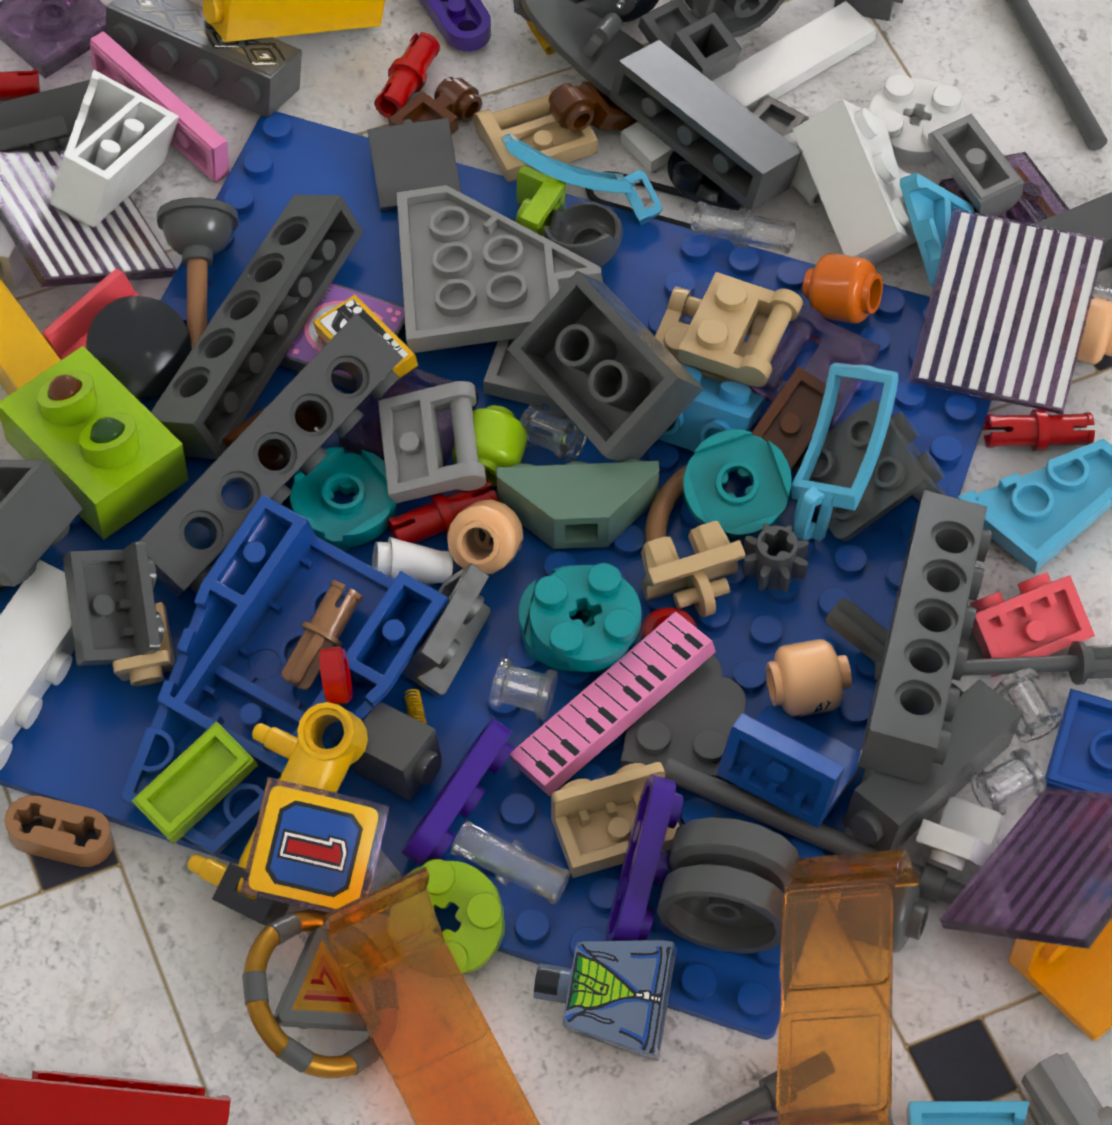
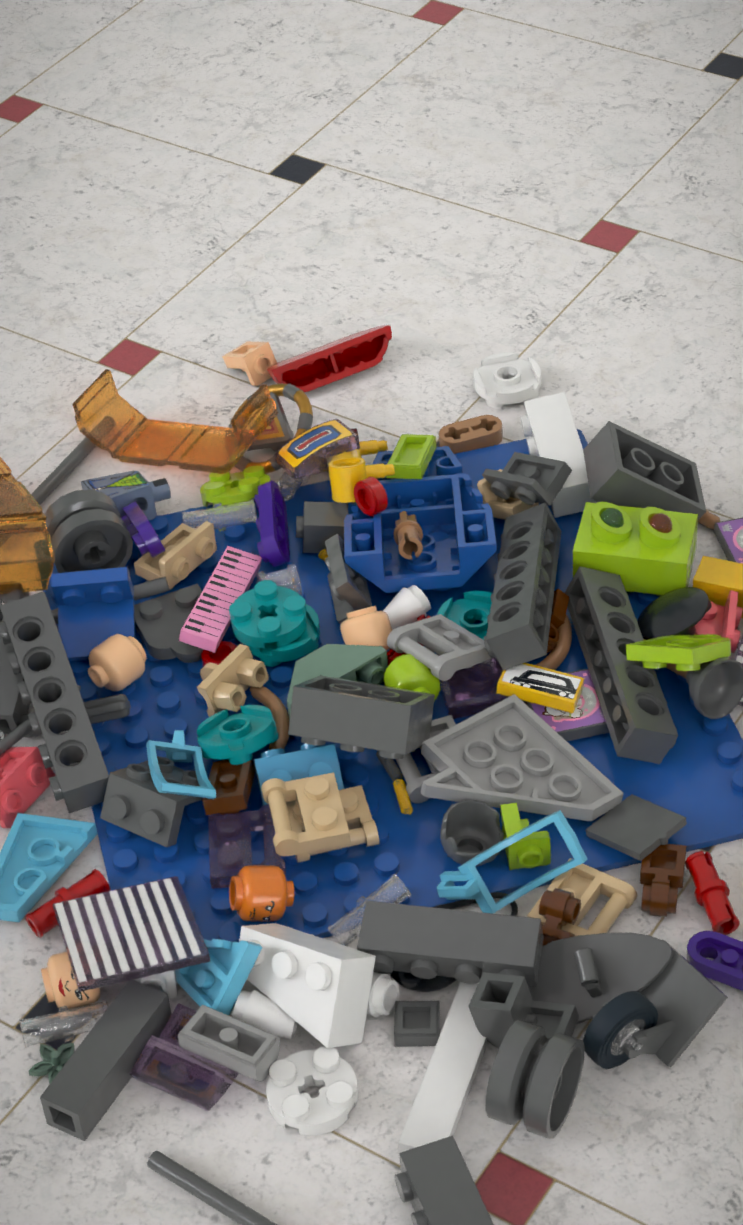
camera: 150 degrees right, 15 degrees down
(198, 253) = (682, 650): none -> lime plate
(775, 557) = (183, 712): dark grey gear -> none

